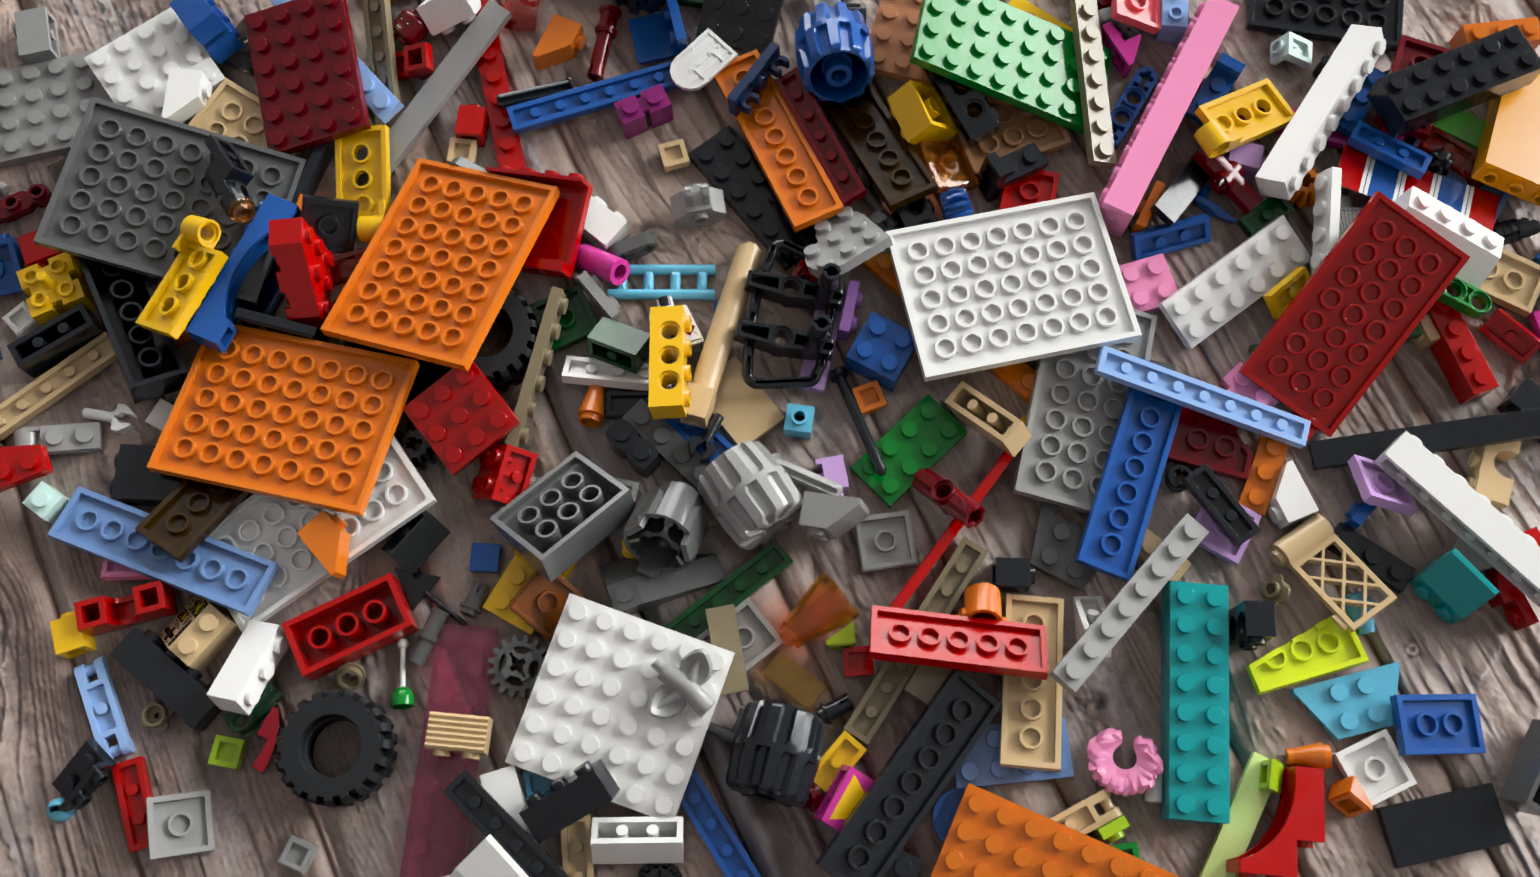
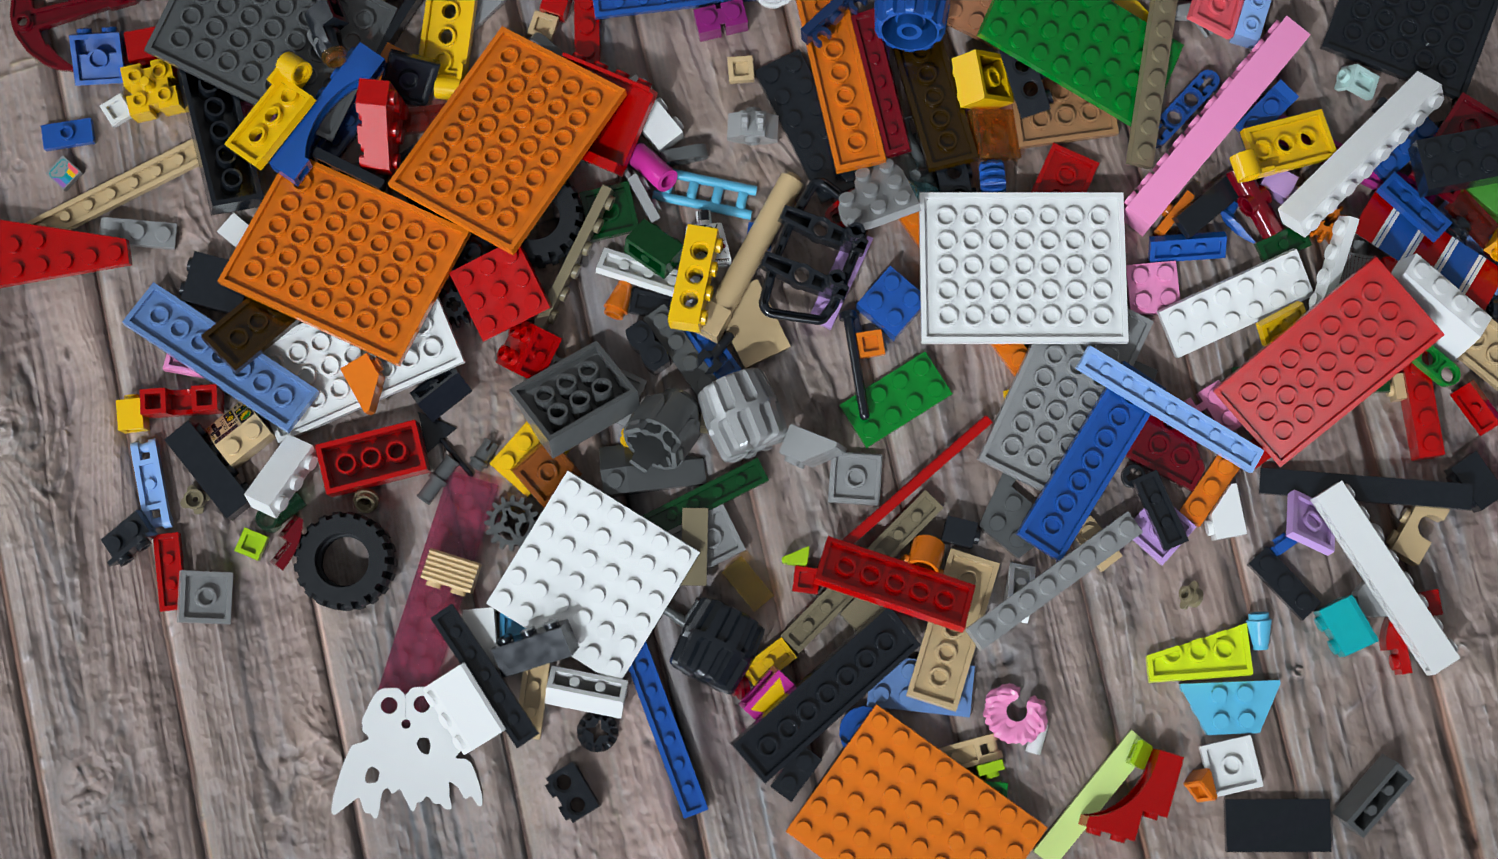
camera: 15 degrees right, 10 degrees up
(46, 502) = (124, 291): light aqua brick -> none
(55, 340) = (148, 140): black brick -> none
(58, 816) = (103, 567): medium azure hinge -> none
(112, 417) = (187, 220): white bar -> none
(298, 854) = (299, 642): light grey tile -> none
(402, 696) = (407, 527): hinge -> none
(485, 558) = (499, 419): blue tile -> none
(682, 686) = (648, 572): light grey plant -> none
(795, 428) = (803, 361): medium azure plate -> none
(809, 479) = (797, 409): light grey axle -> none
(817, 613) = (781, 530): clear orange cone -> none
(833, 469) = (820, 411): lavender brick -> none
(834, 708) = (776, 616): black pin -> none
(848, 321) = (876, 249): medium lavender plate -> none
(948, 497) = (917, 453): dark red piece -> none
(988, 418) = (970, 389): tan brick -> none
(1003, 171) = (1052, 150): black bracket -> none
(1122, 51) = (1191, 51): dark pink slope -> none
(1195, 703) = (1090, 676): teal brick -> none
(1252, 624) = (1157, 622): black brick -> none
(1310, 755) = (1178, 744): orange cone -> none
(1312, 539) = (1229, 559): tan piece -> none
(1437, 724) = (1296, 740): blue plate -> none

